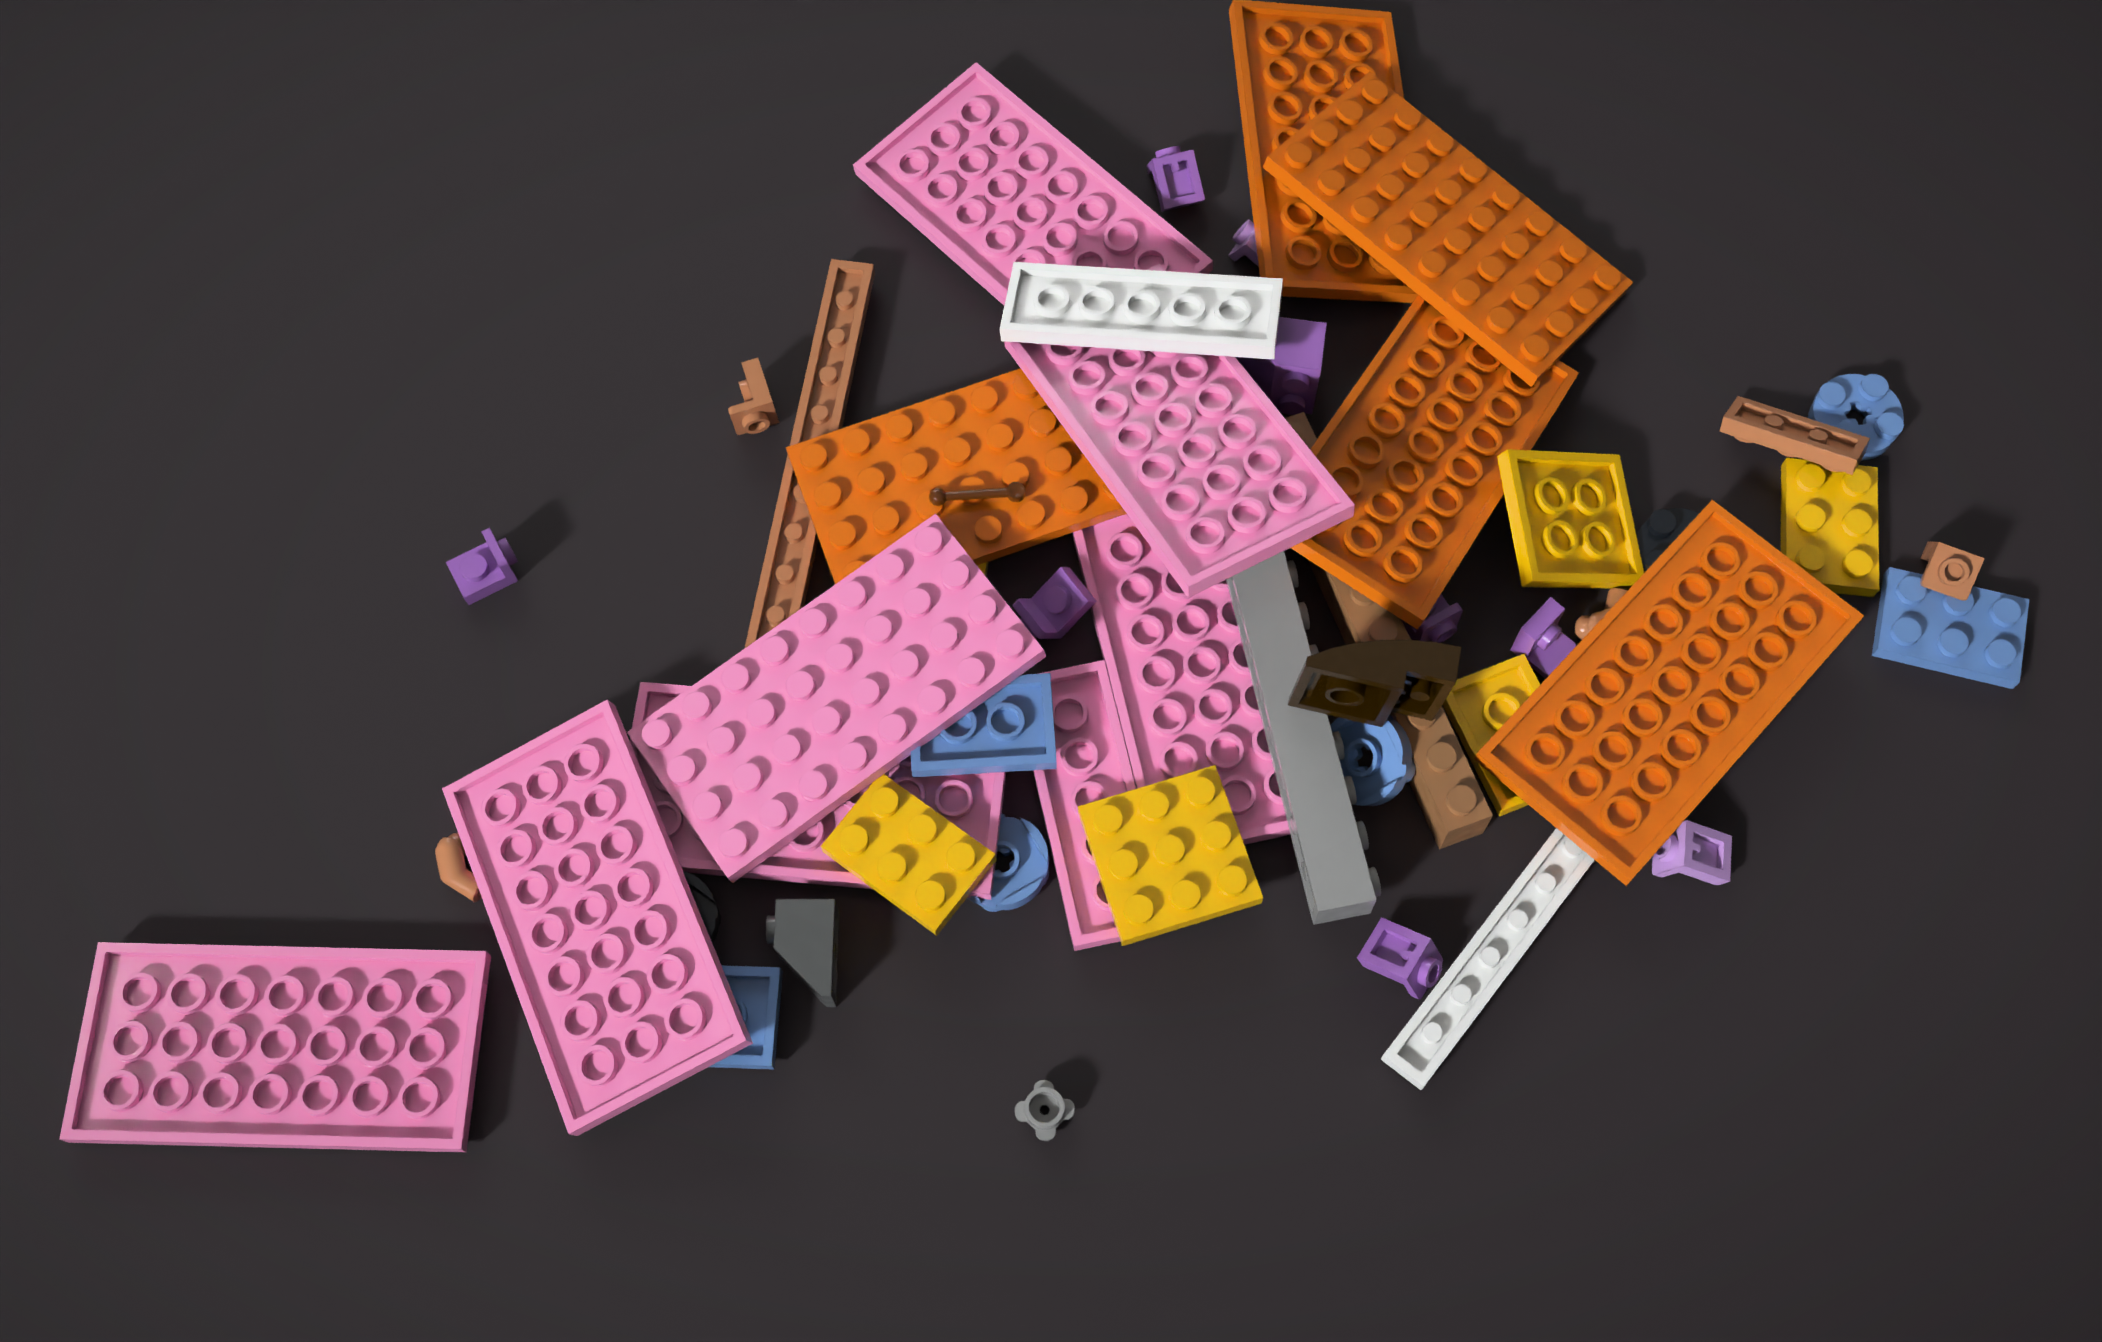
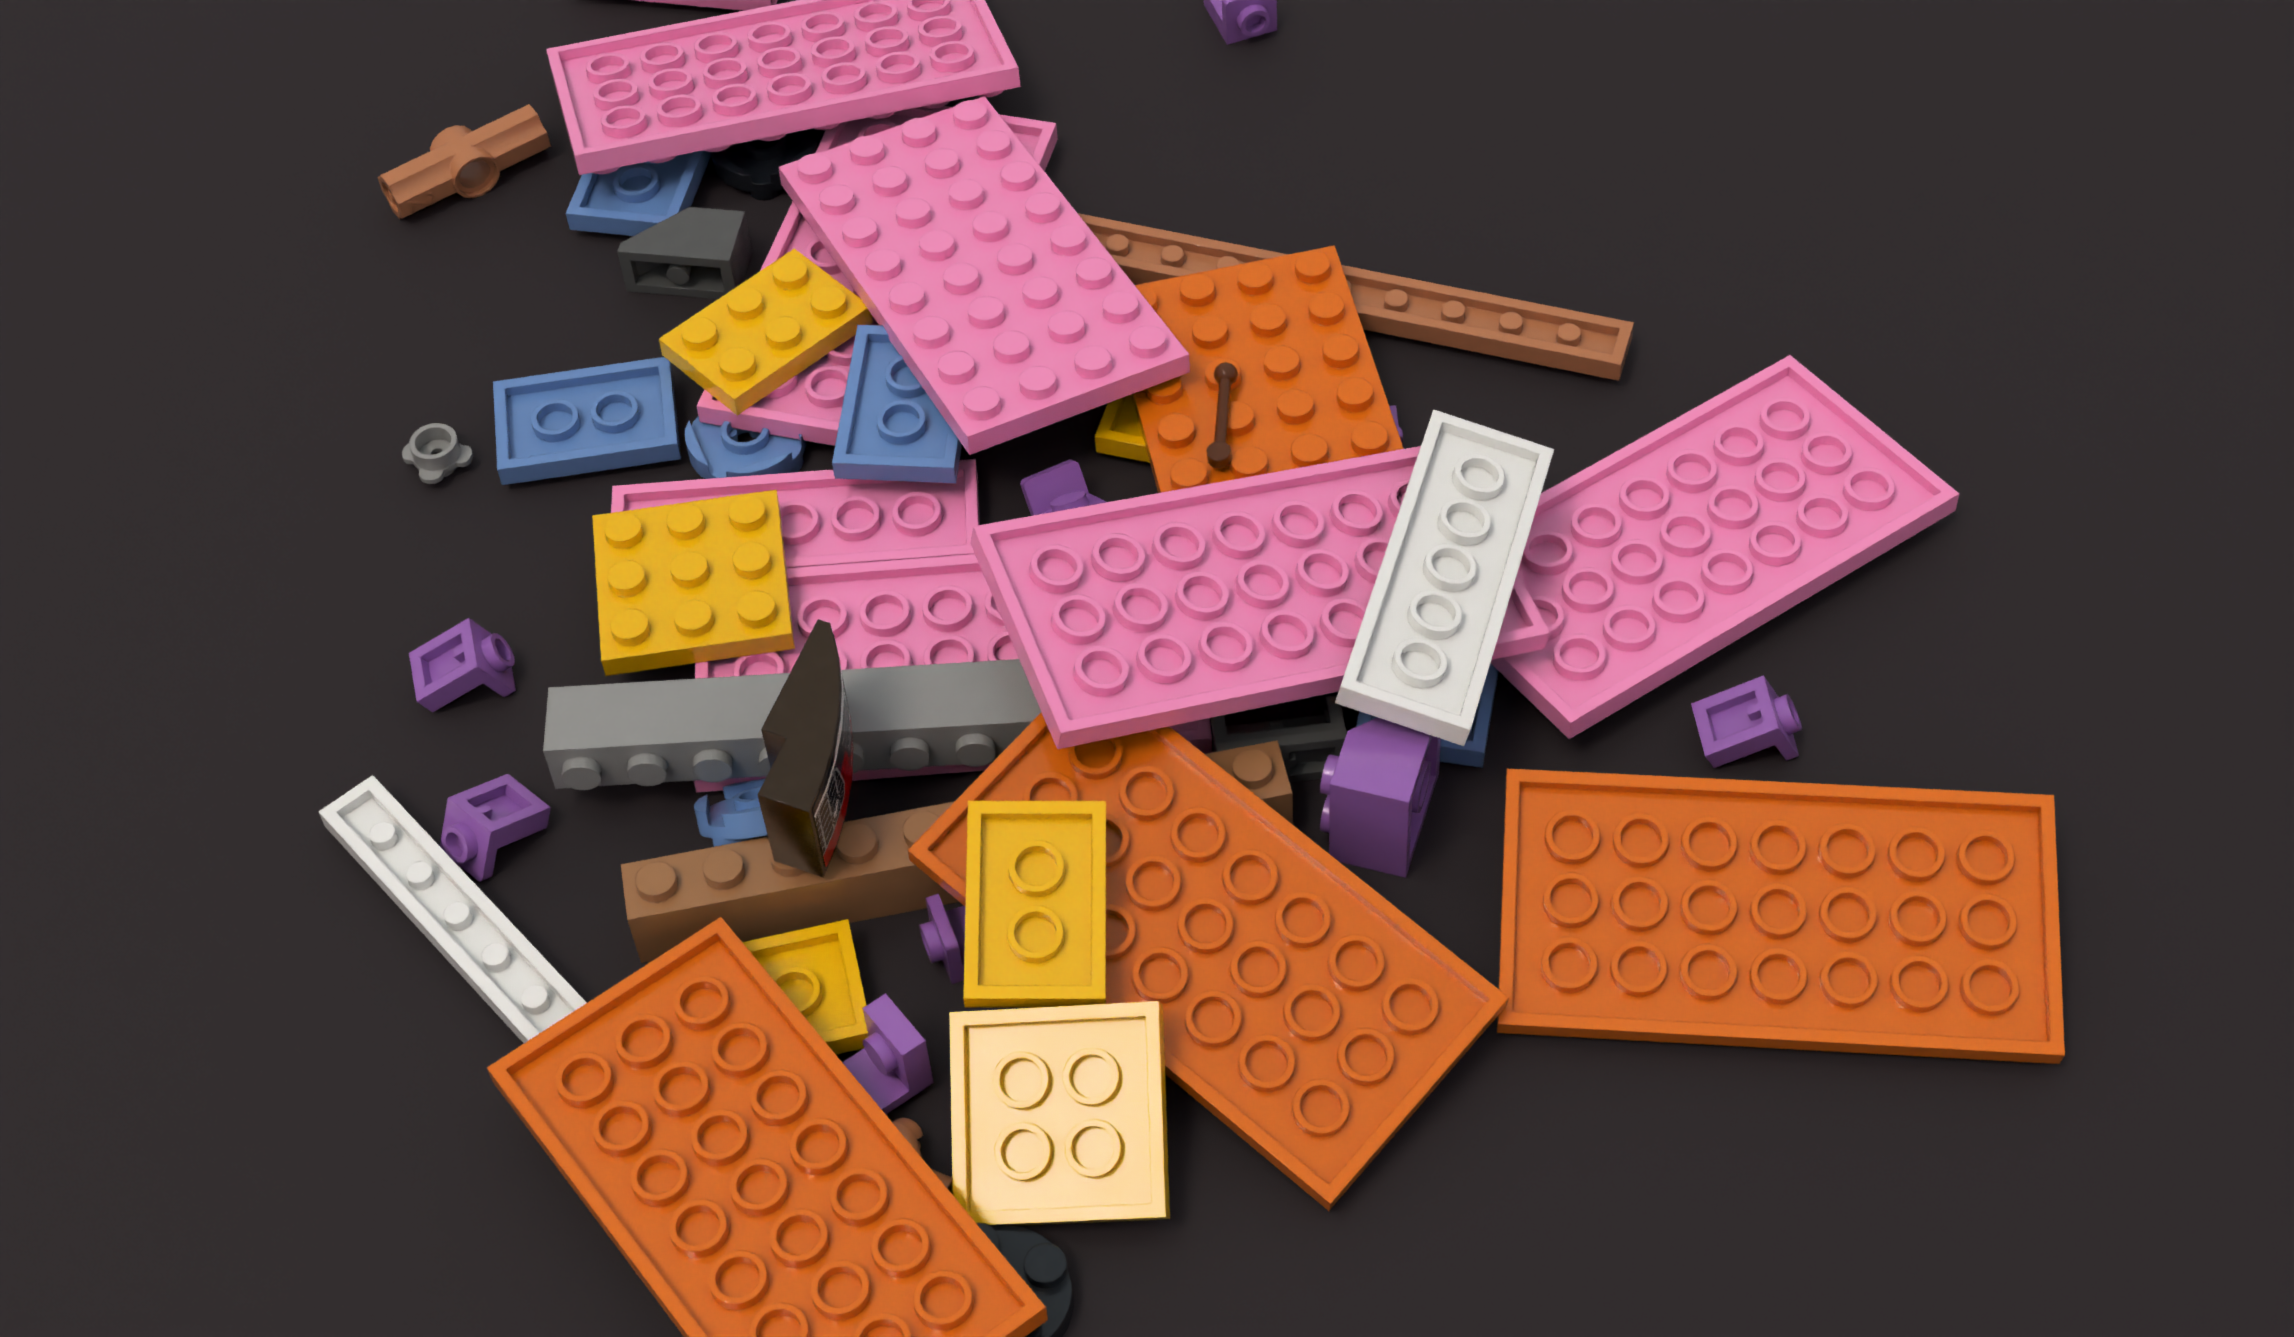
camera: 100 degrees right, 15 degrees down
(705, 1181) = (464, 161): none -> nougat piece
(758, 408) = (1431, 244): nougat bracket -> none
(999, 992) = (585, 420): none -> medium blue plate
(1265, 1022) = (460, 662): none -> medium lavender bracket
(1448, 227) = (1605, 1049): orange plate -> none
(1452, 531) = (1035, 904): none -> yellow plate
(1695, 853) = (517, 1198): lavender bracket -> none

